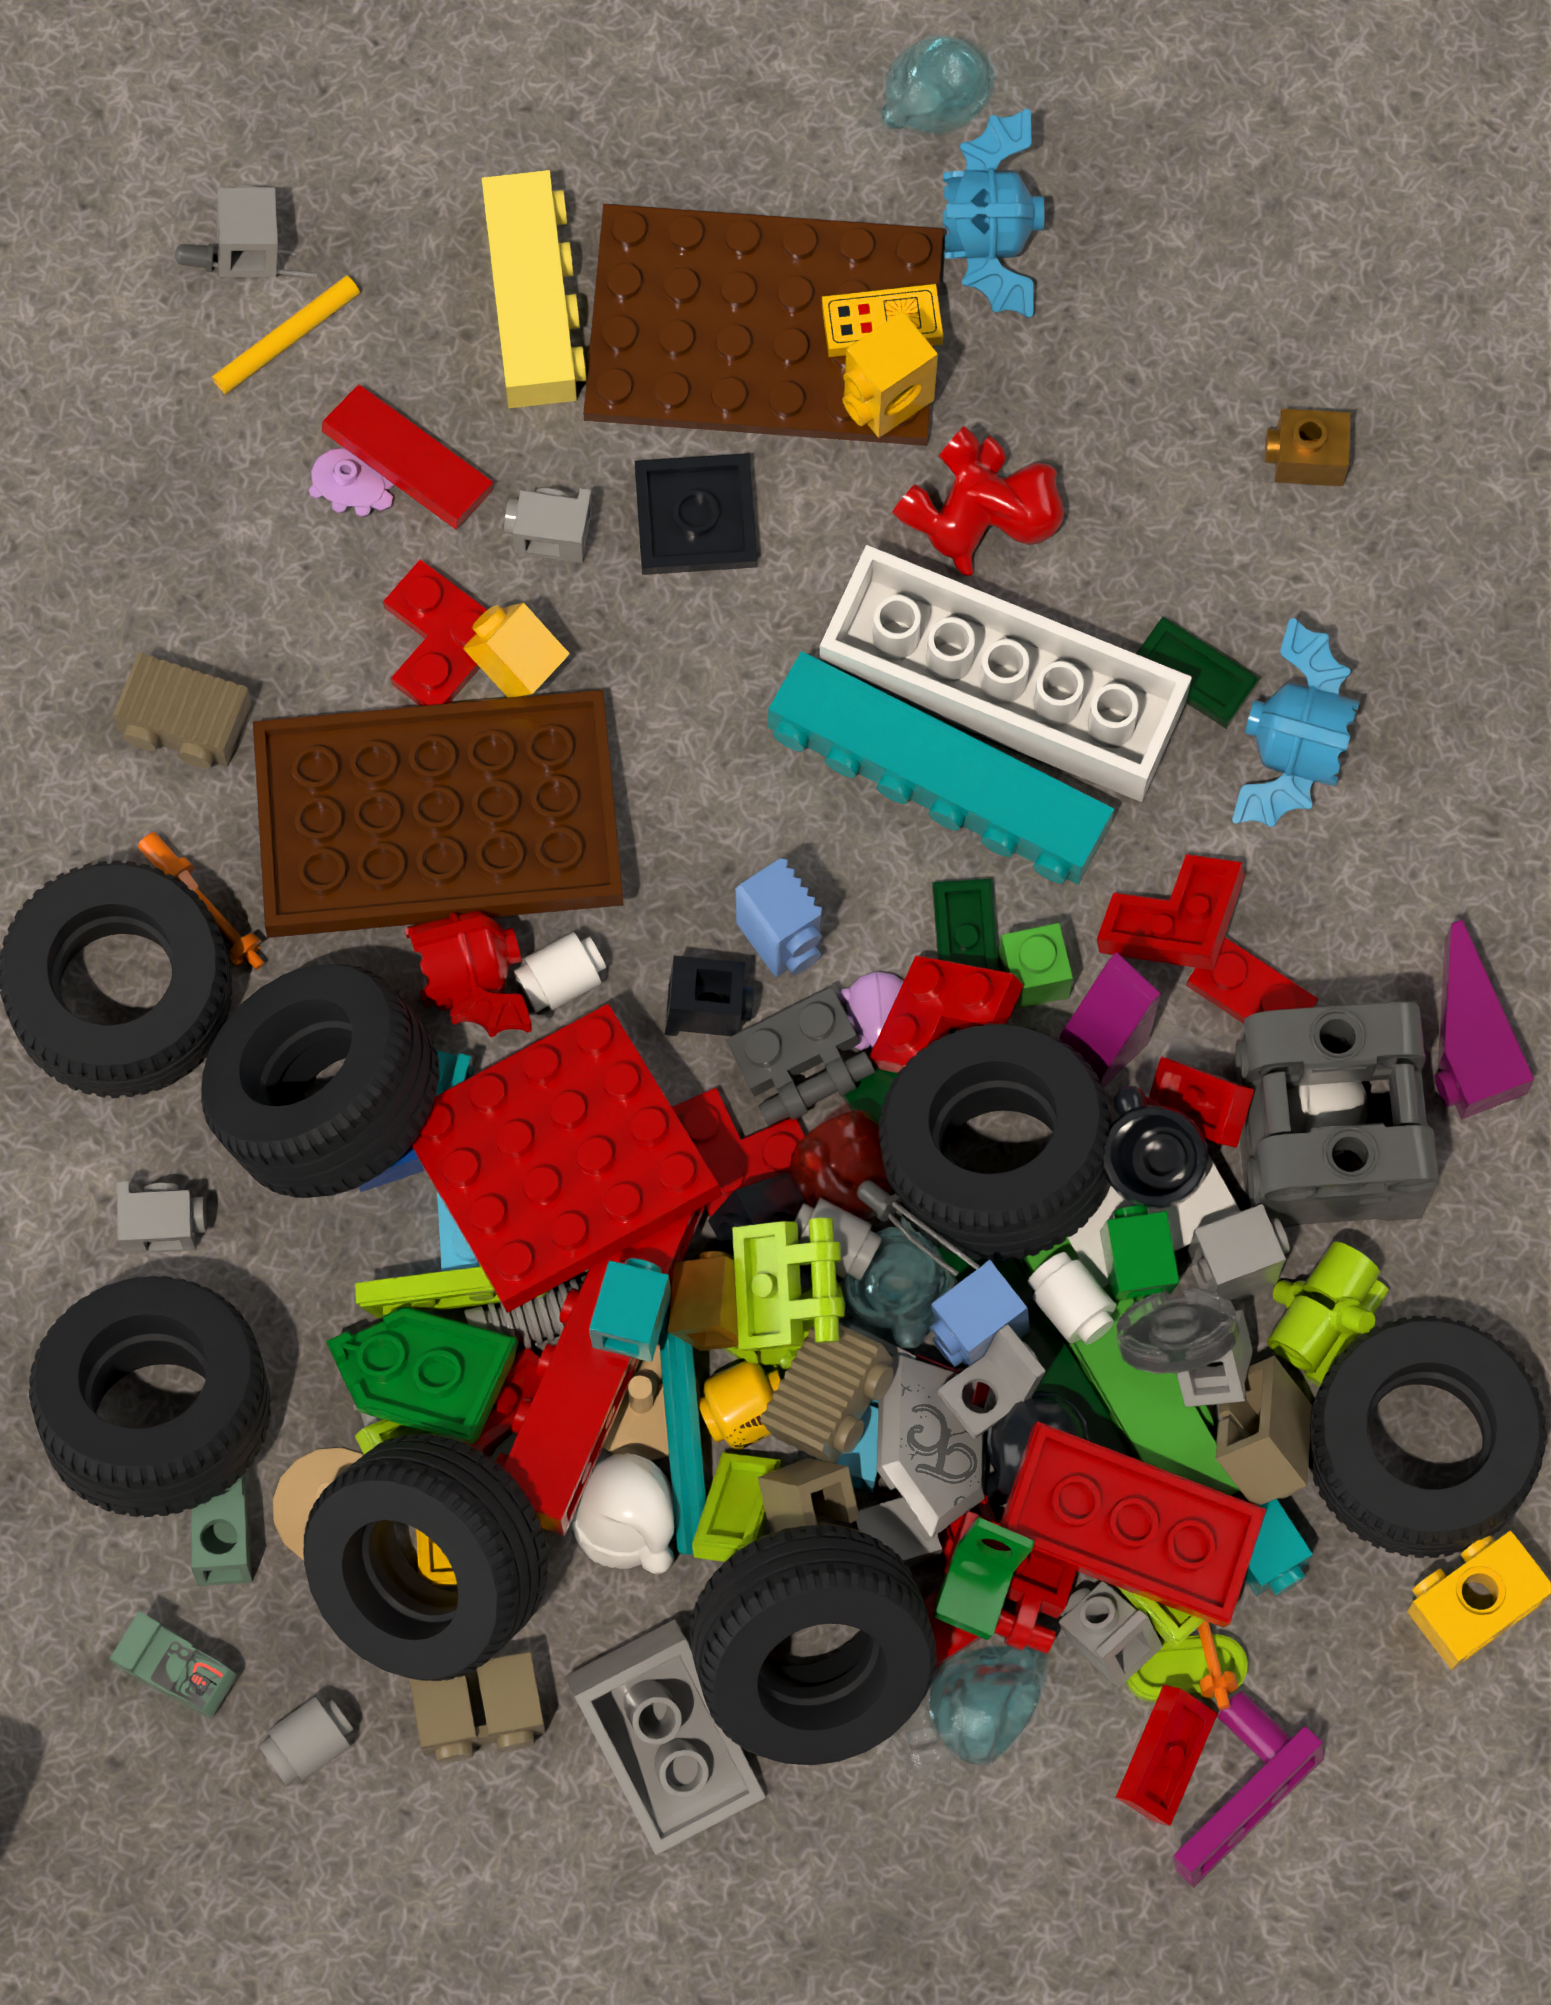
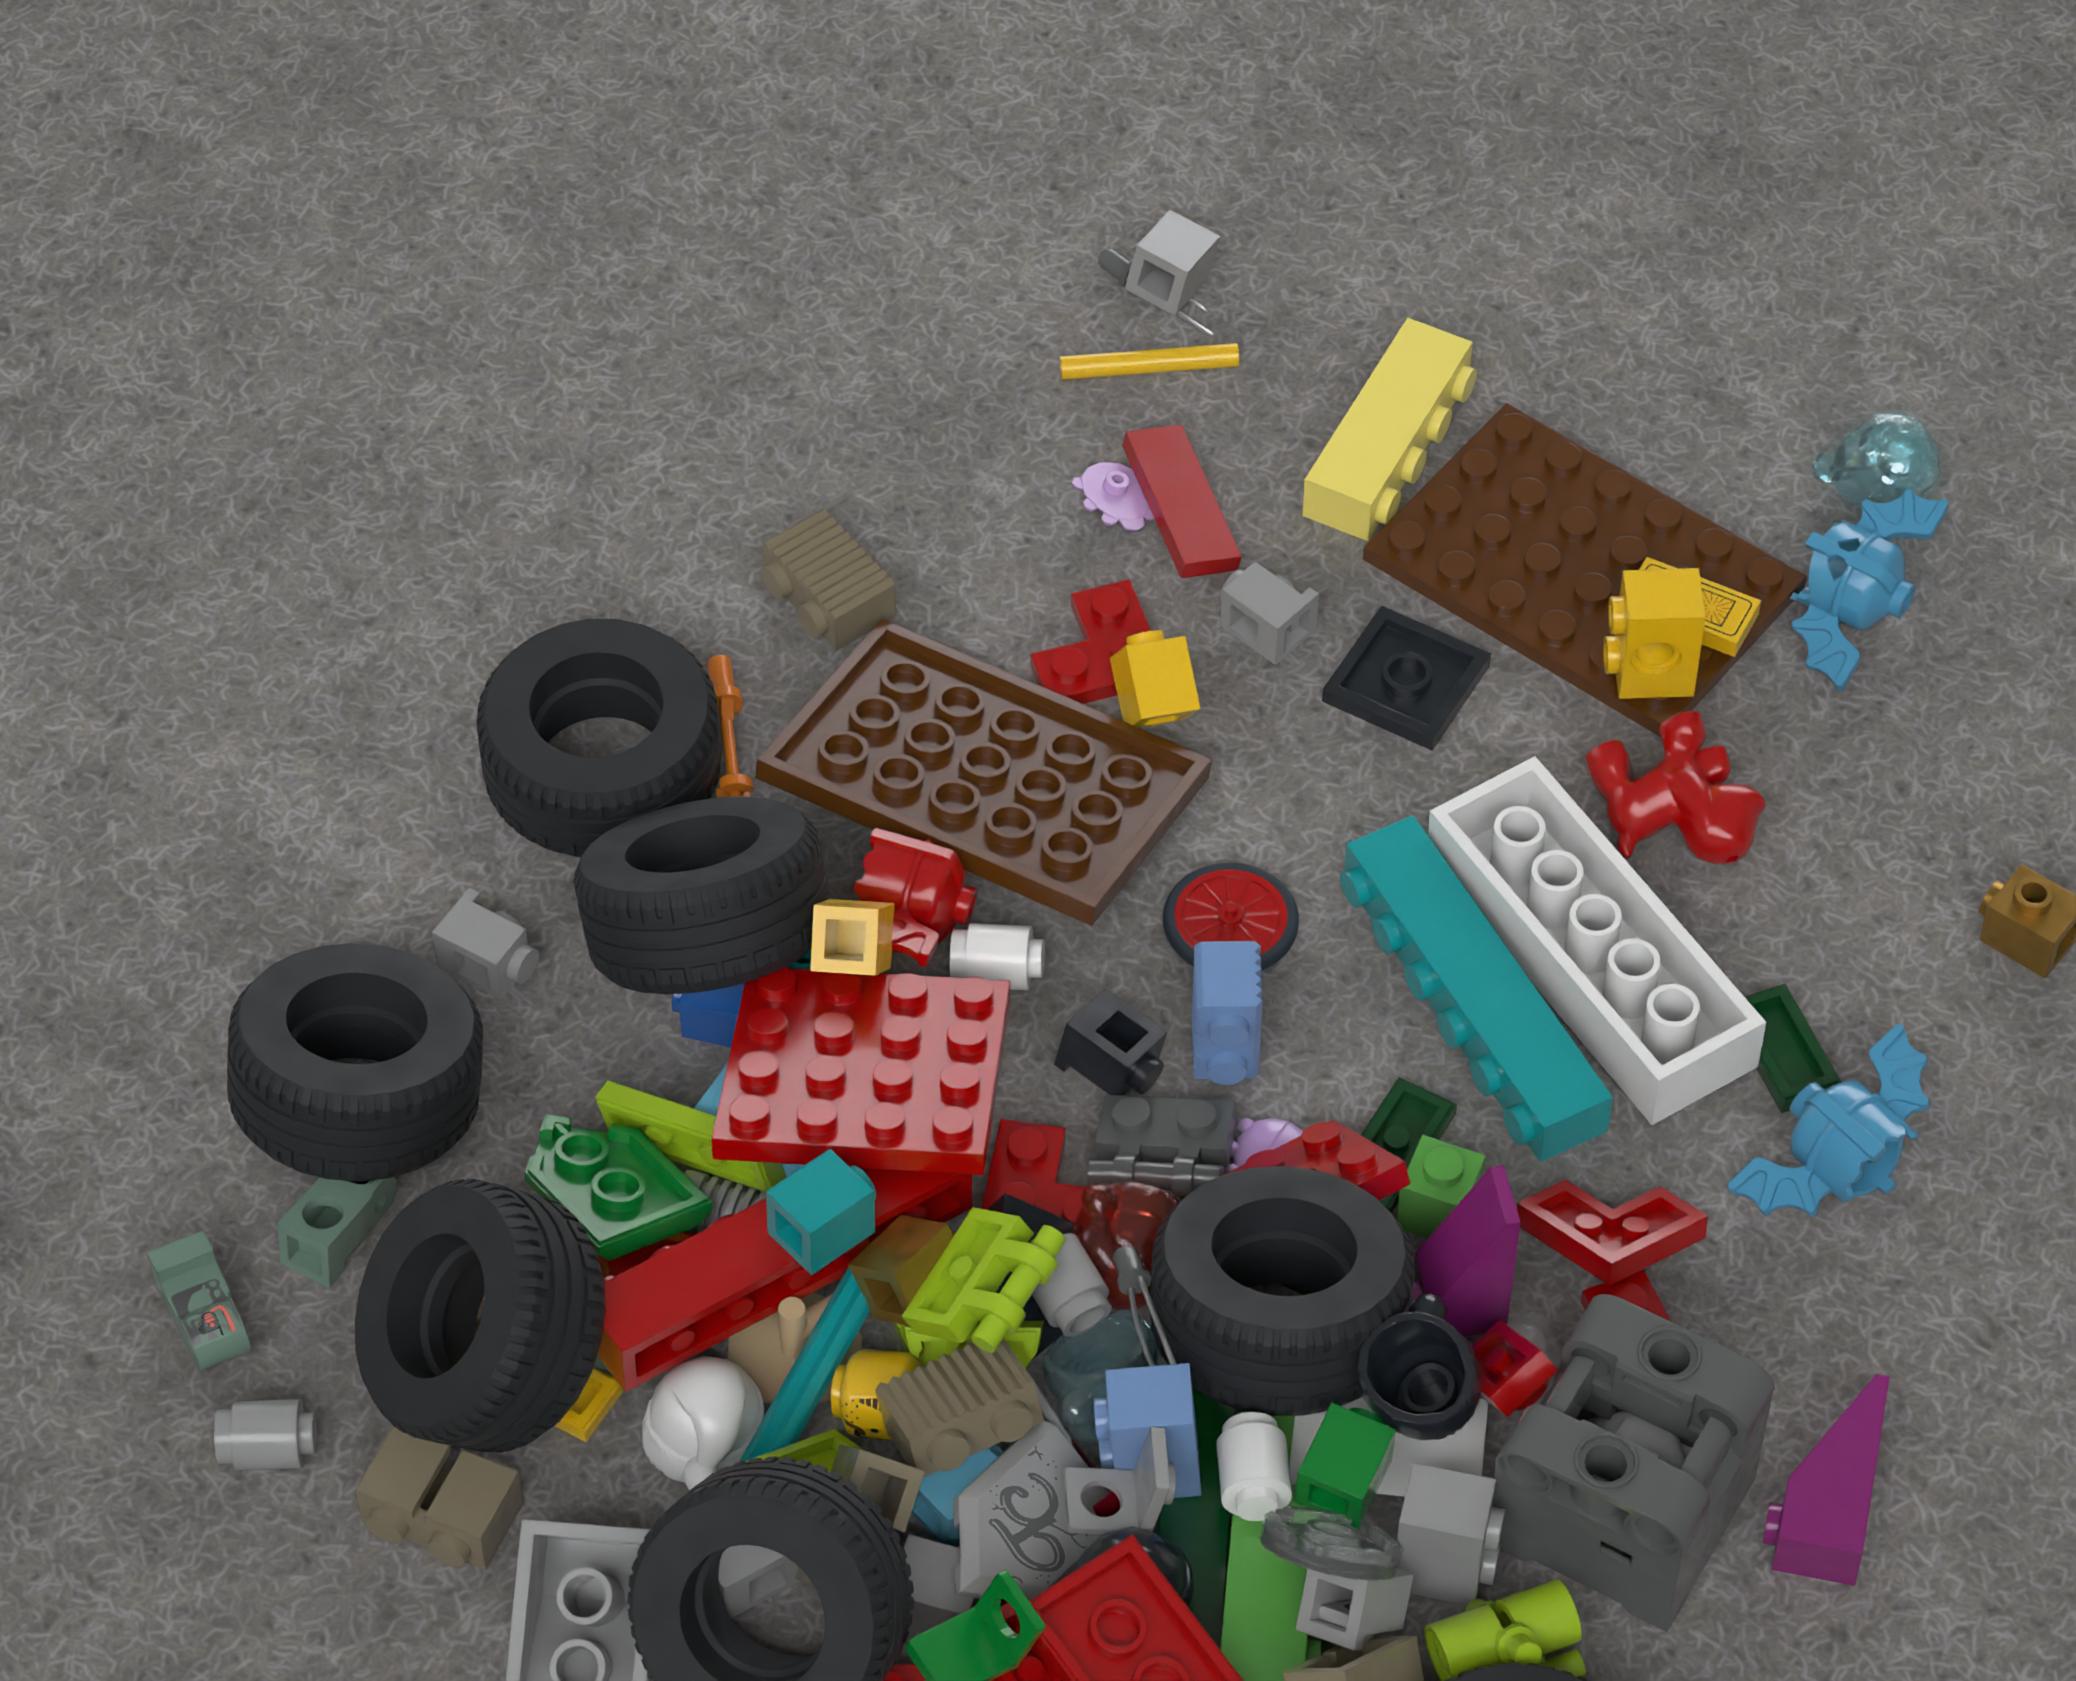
camera: 35 degrees right, 20 degrees down
(471, 1050) = (852, 937): none -> yellow brick
(712, 822) = (1231, 905): none -> red wheel

